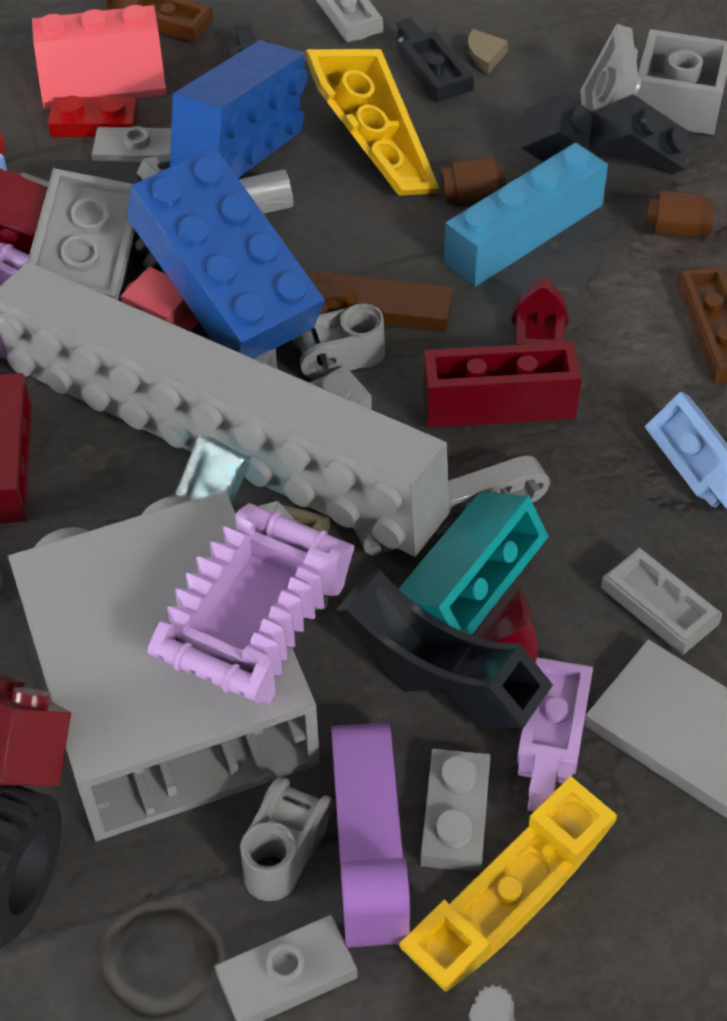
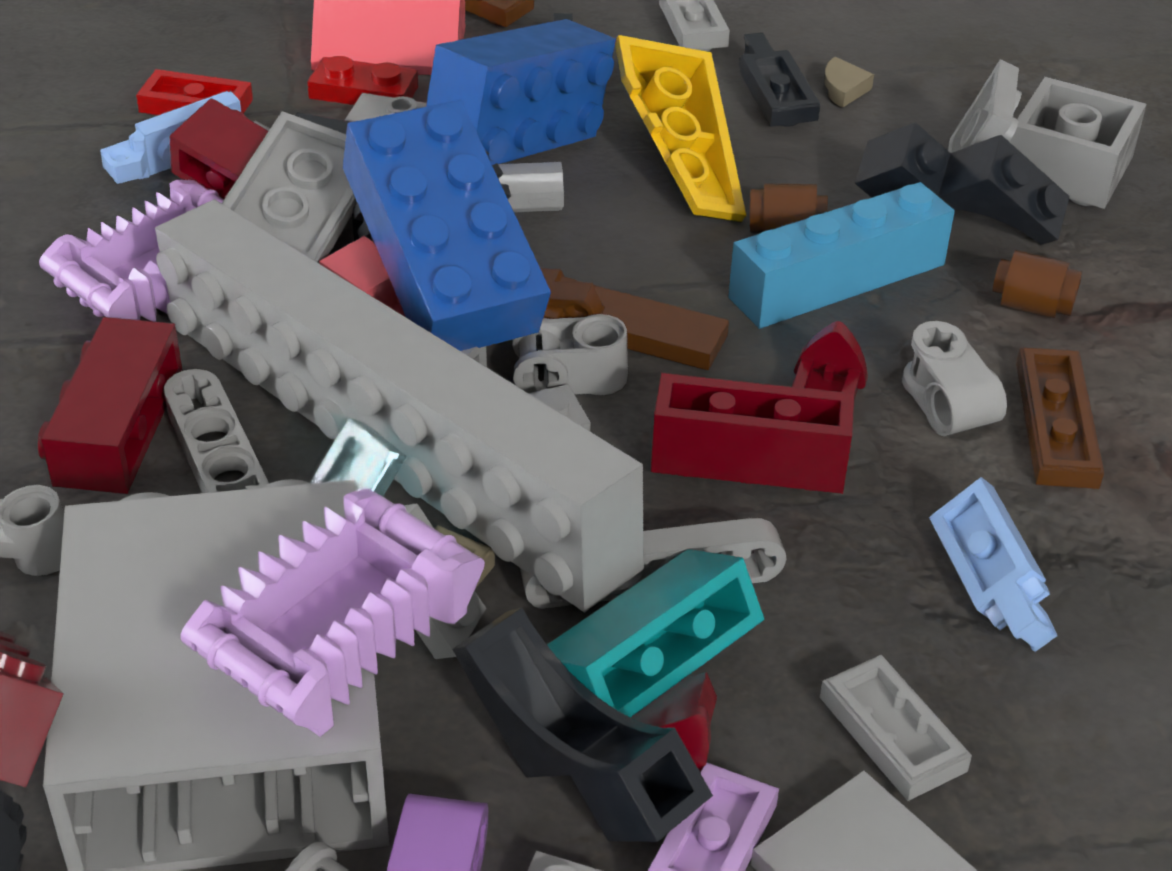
camera: 10 degrees right, 10 degrees down
(86, 479) = (218, 415): none -> light grey beam
(636, 310) = (952, 381): none -> light grey piece

